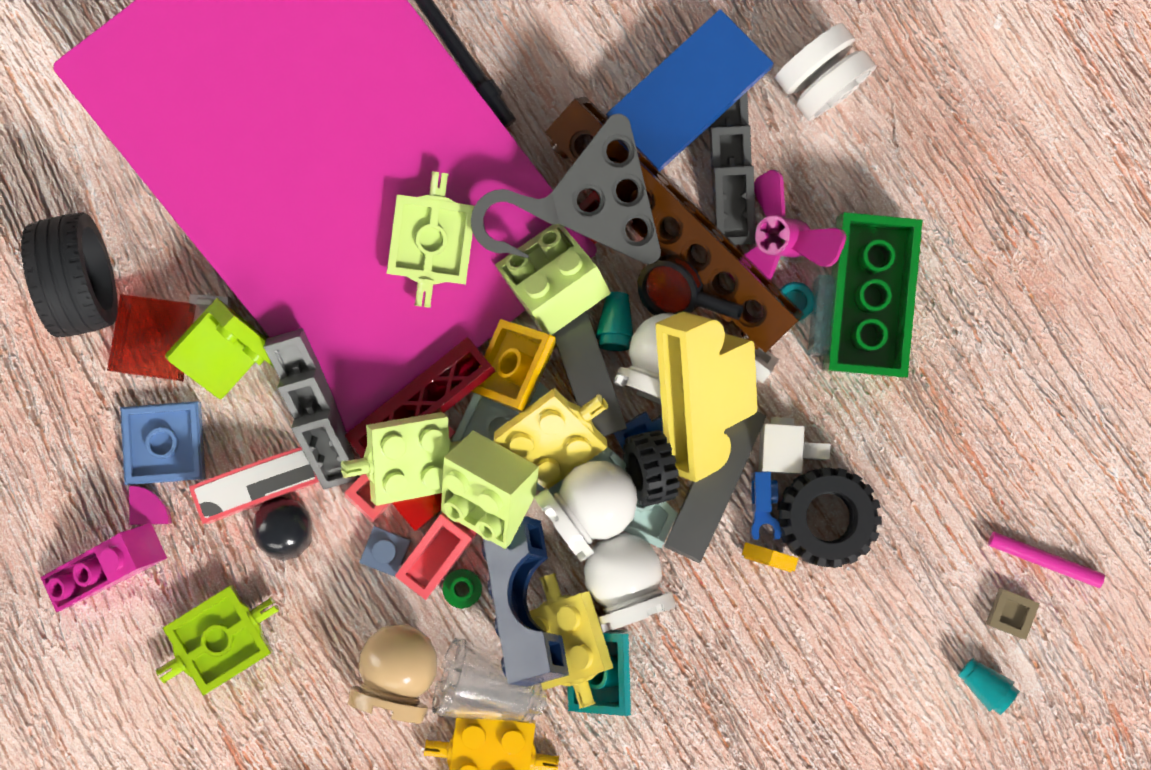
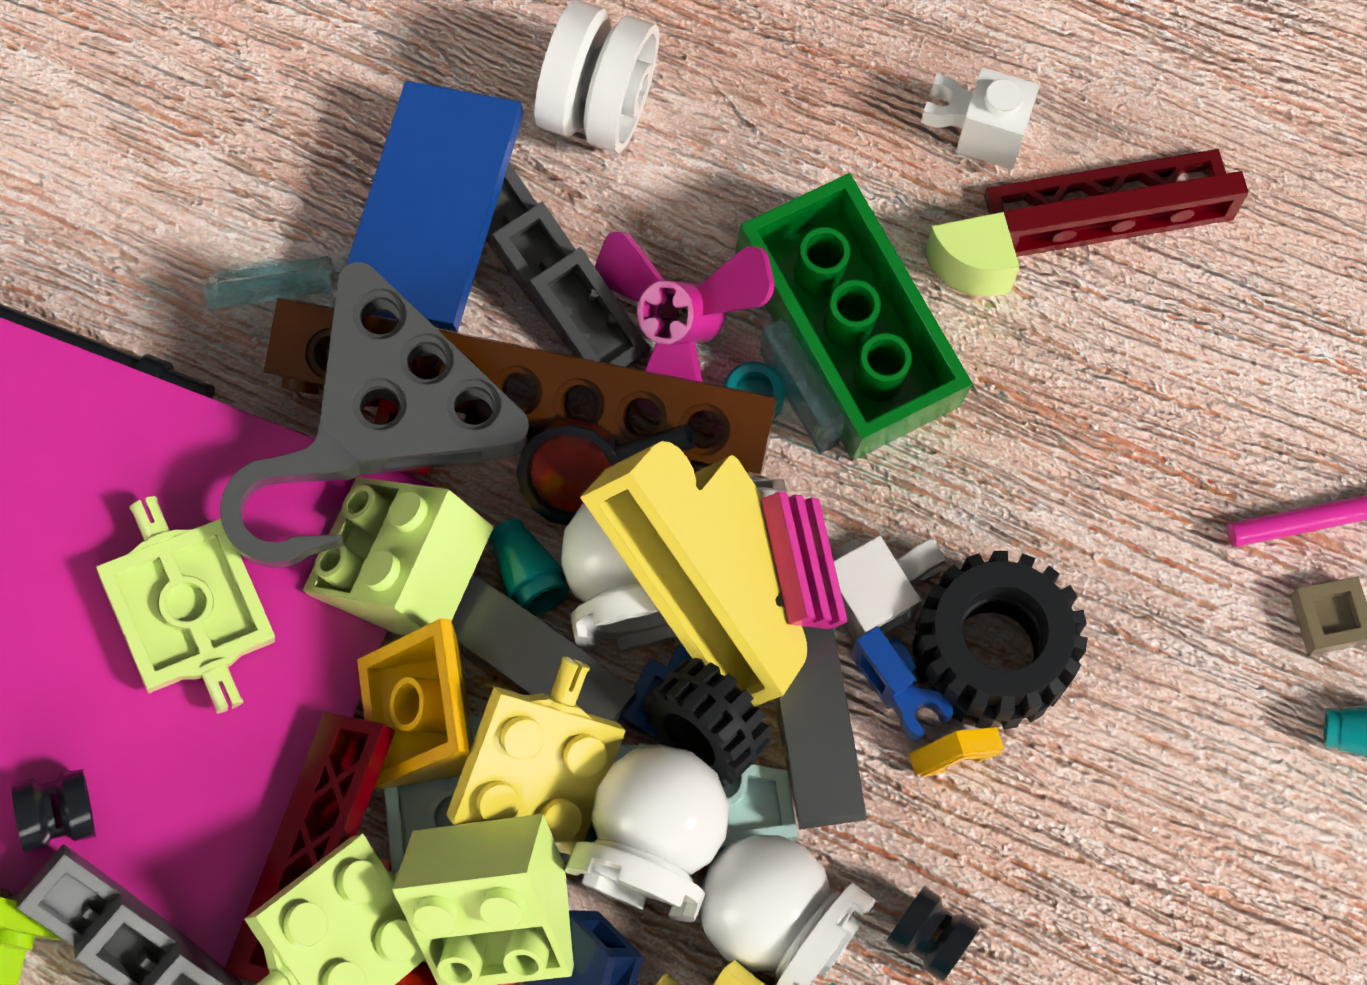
camera: 35 degrees left, 15 degrees down
(298, 304) = (37, 814): none -> black wheel
(579, 79) = (269, 282): none -> clear light blue tile
(693, 629) = (919, 925): none -> black wheel
(754, 416) = (803, 561): none -> tile
(963, 302) = (974, 255): none -> yellowish green brick
(1027, 229) = (990, 117): none -> white brick
(1058, 326) = (1116, 213): none -> dark red fence

